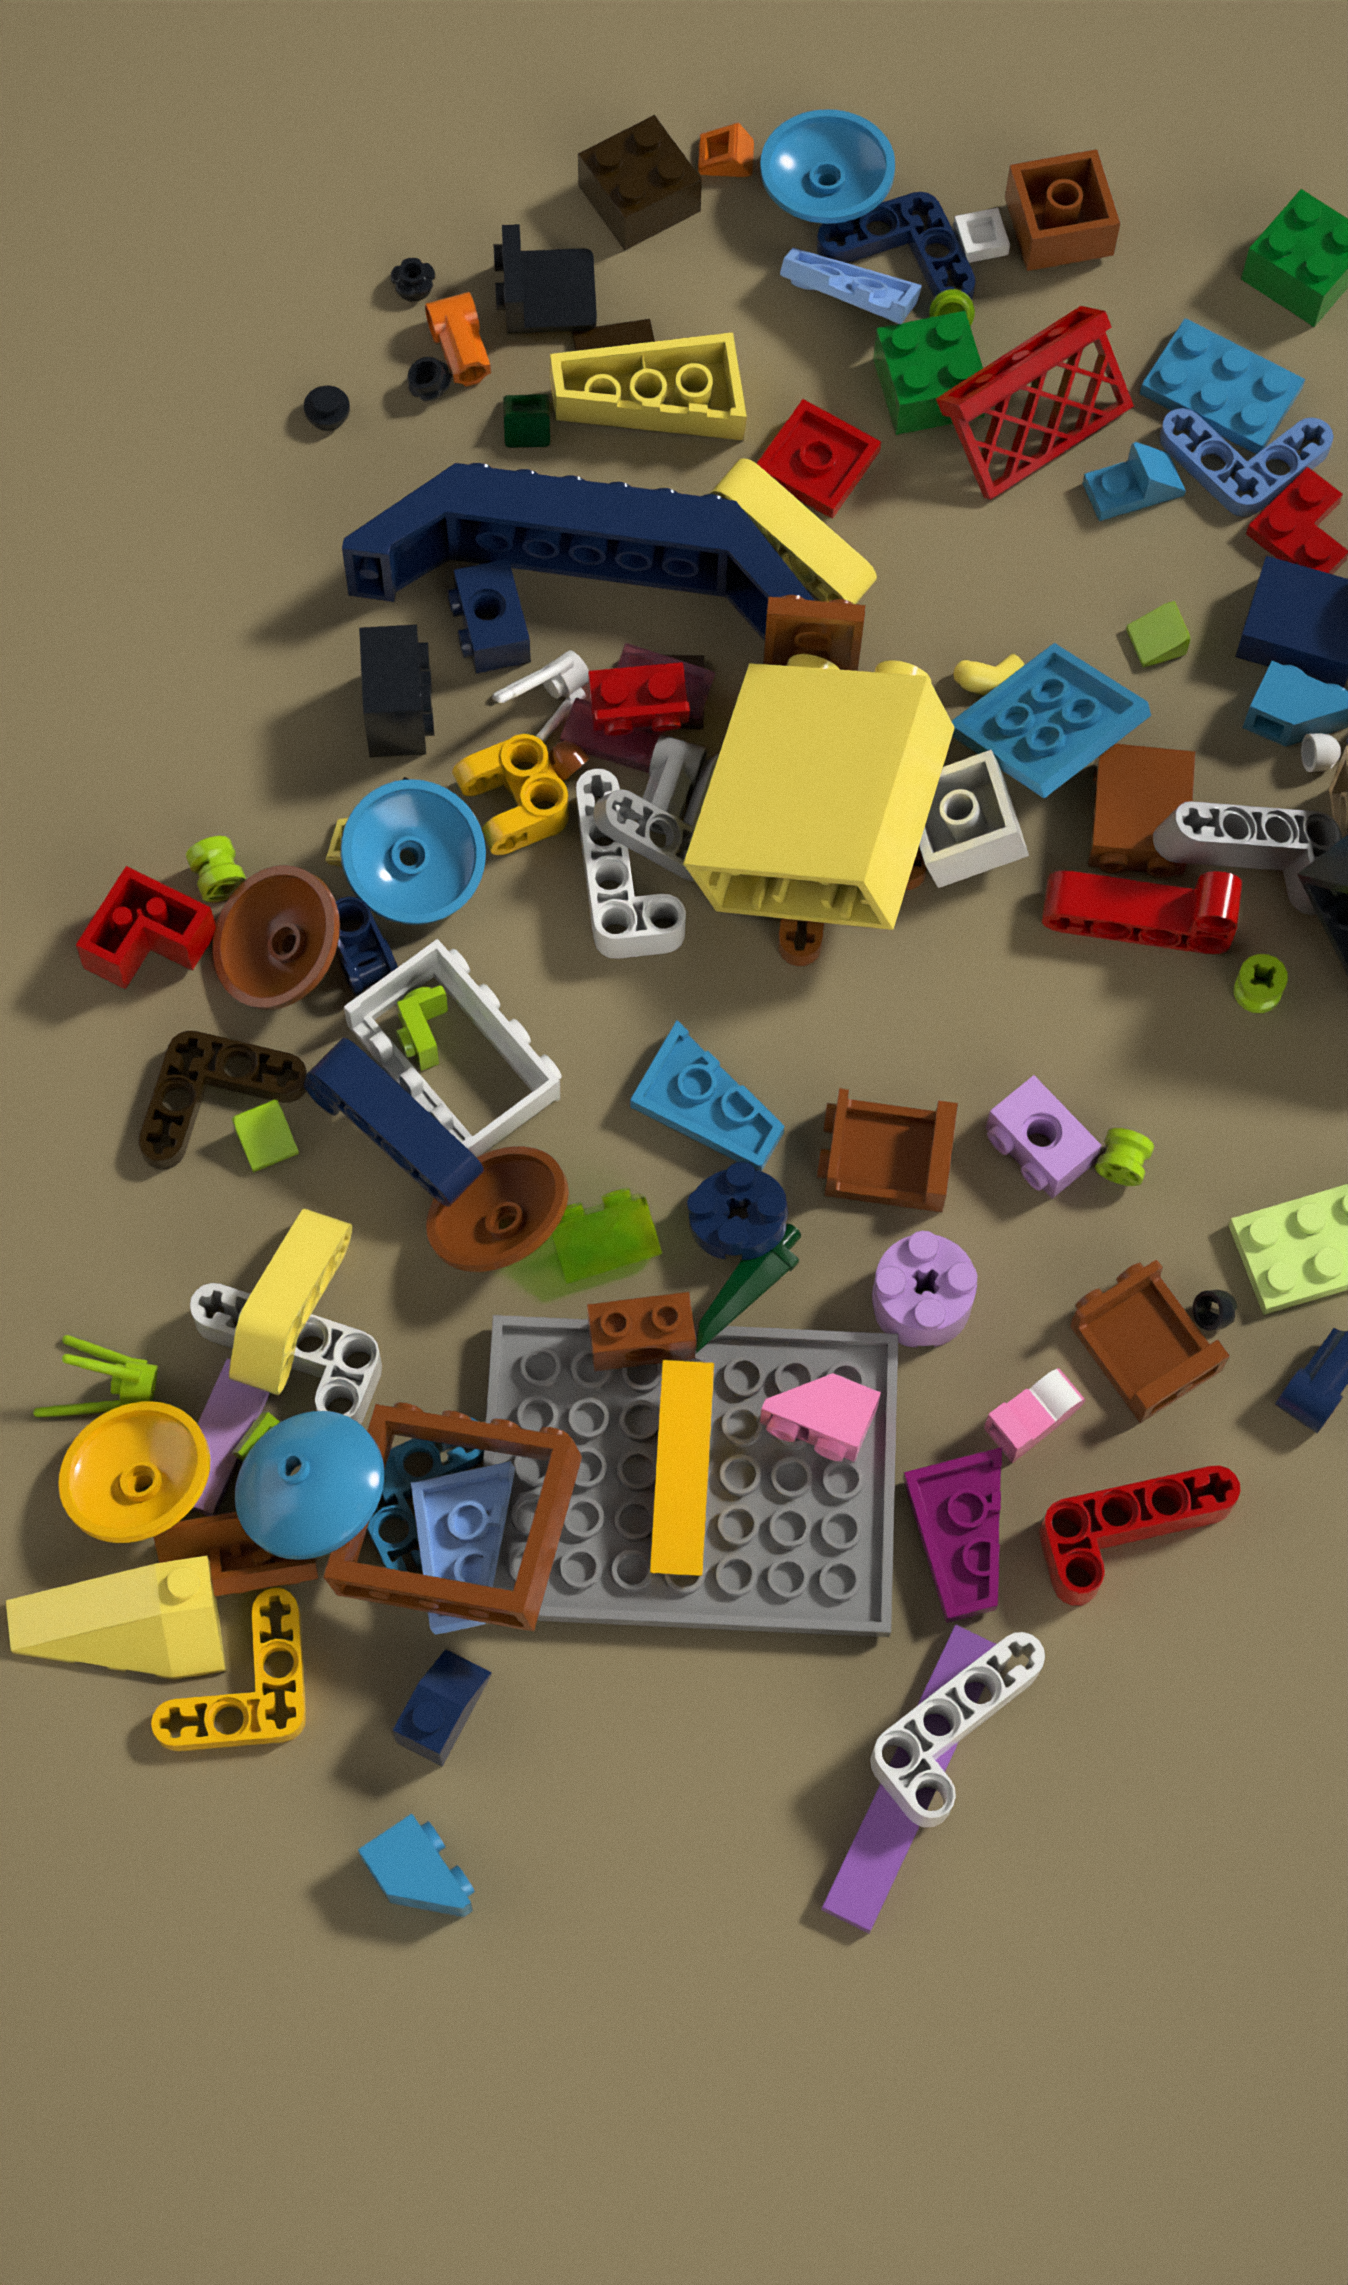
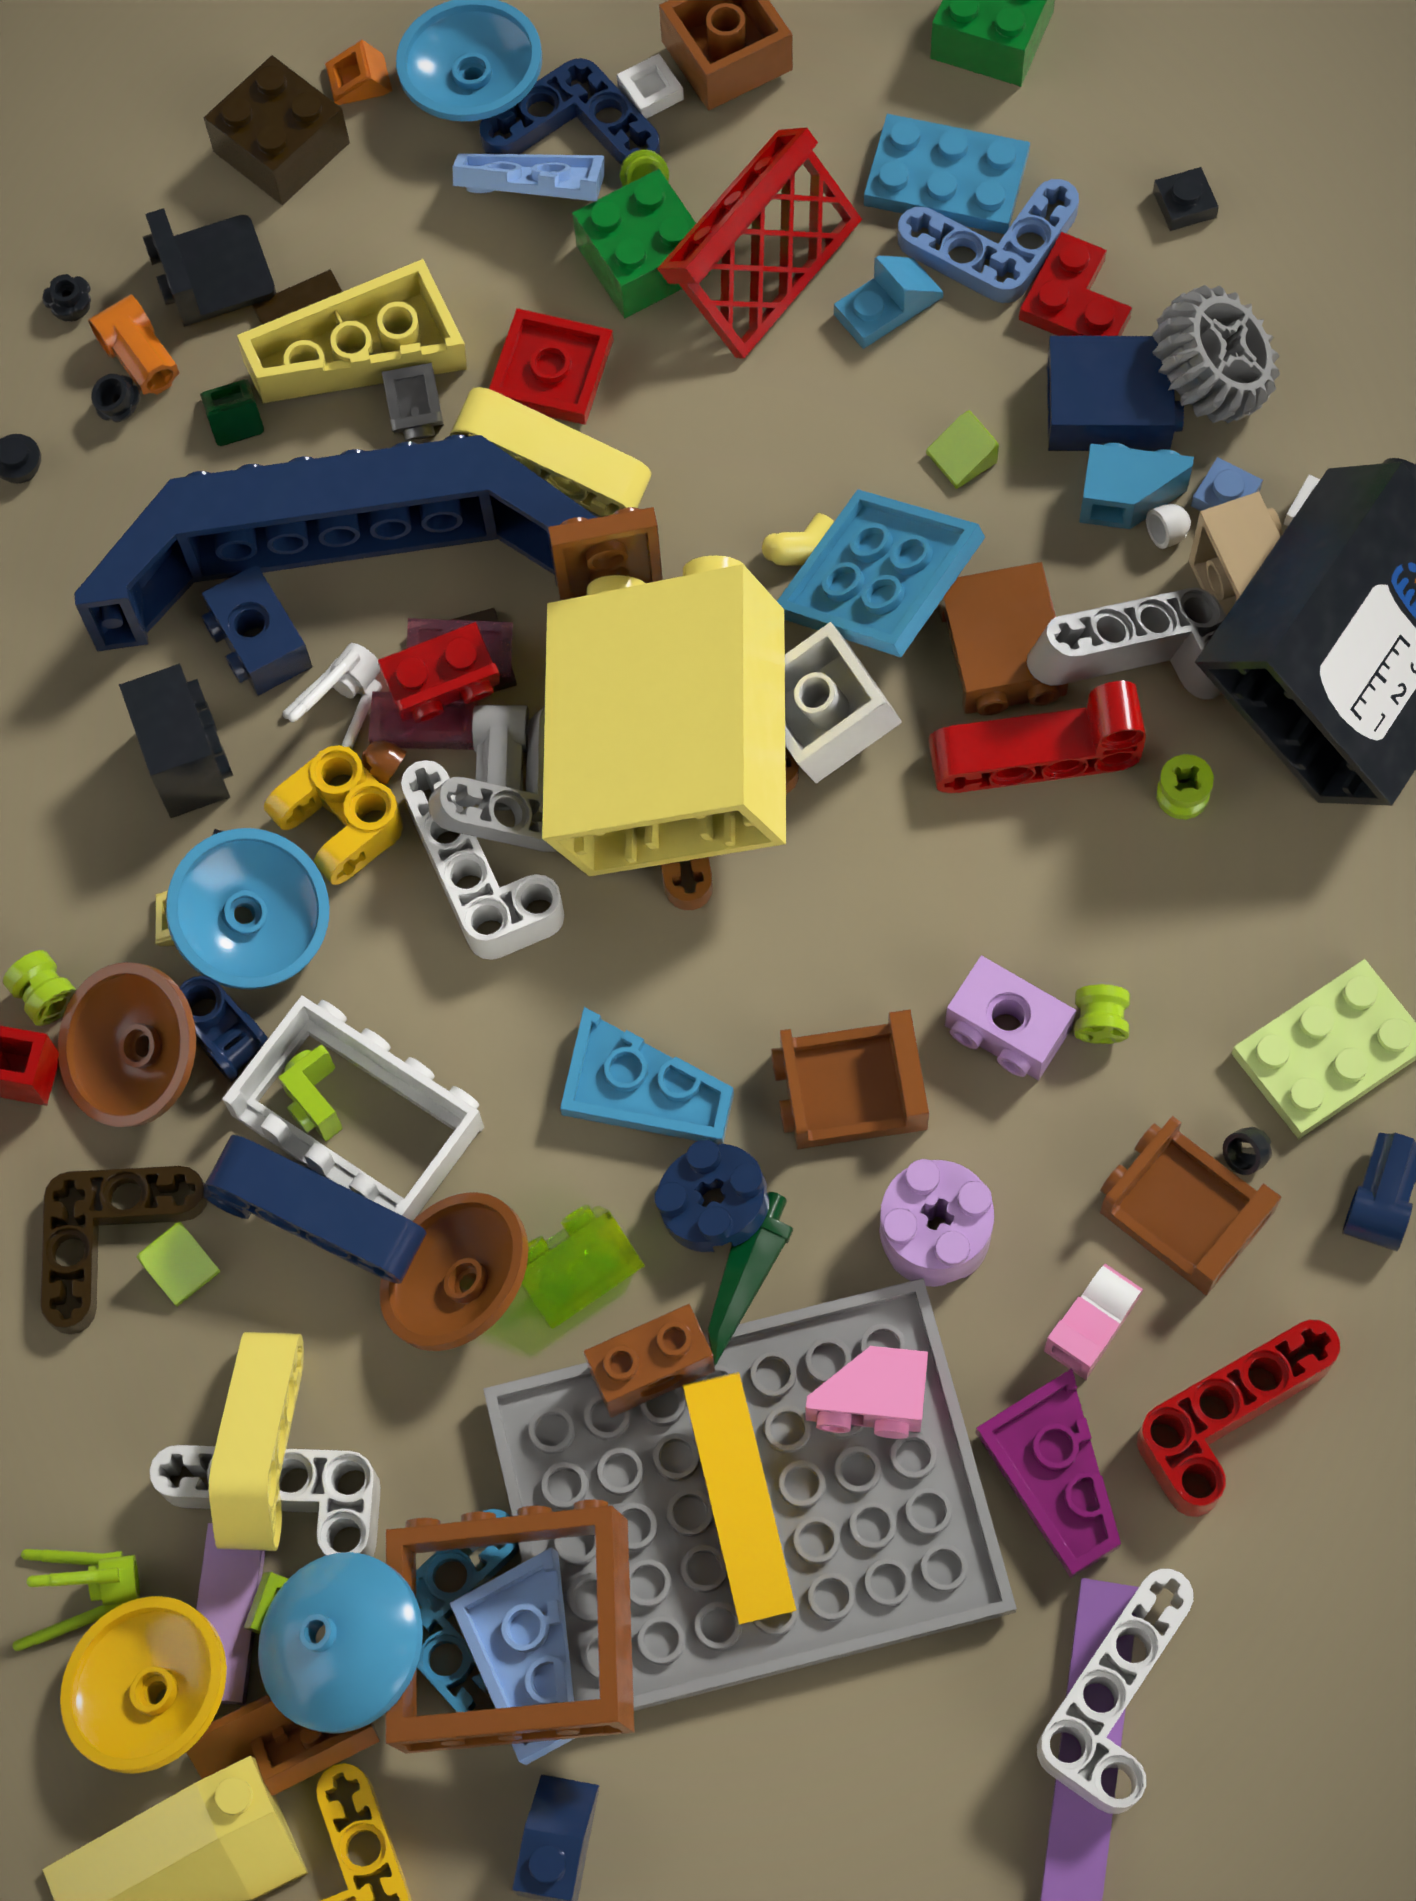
camera: 10 degrees left, 0 degrees up
(687, 455) = (413, 401): none -> flat silver bracket

